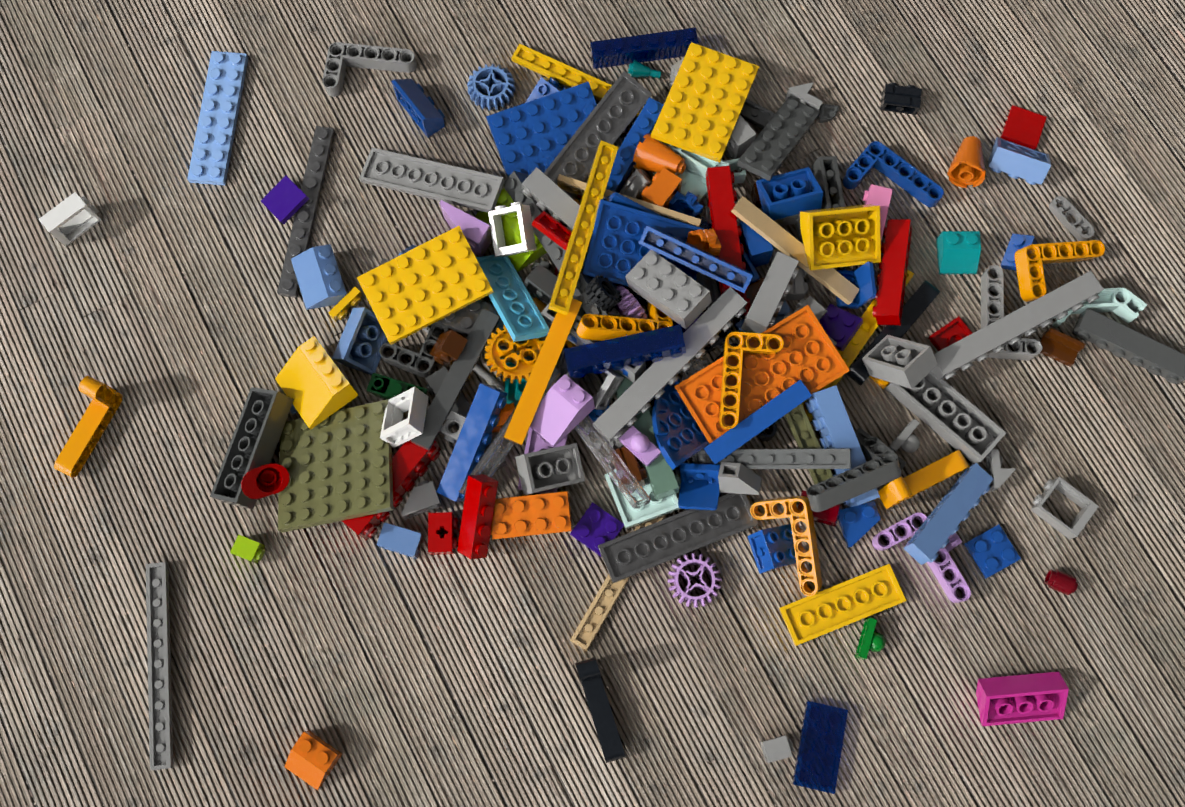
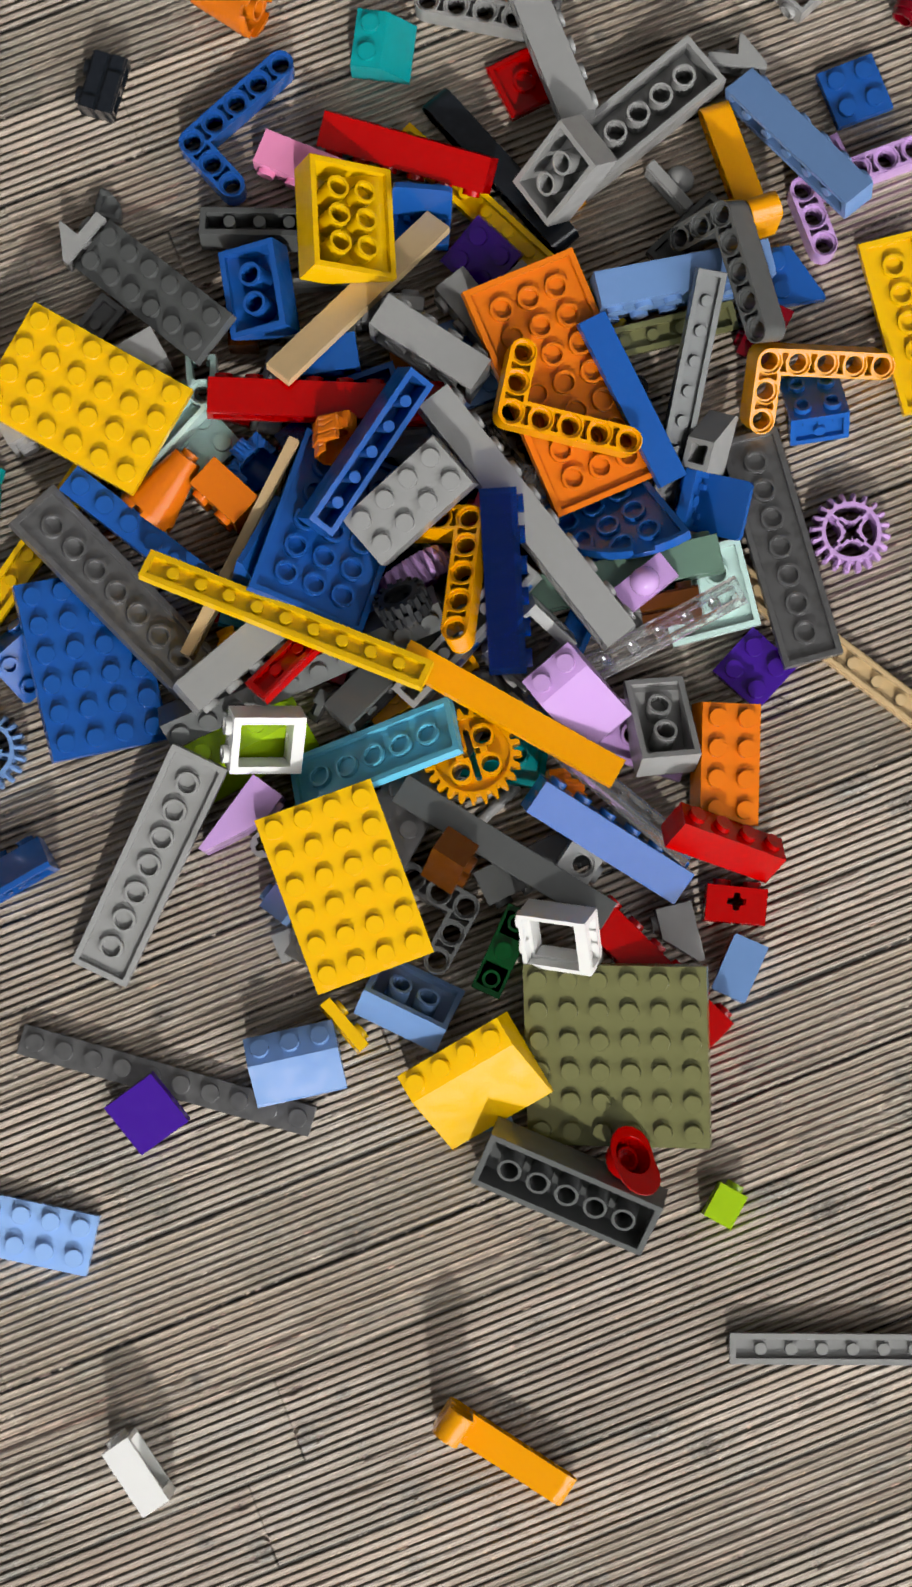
camera: 80 degrees left, 10 degrees up
(635, 185) = (207, 538): light grey tile -> none

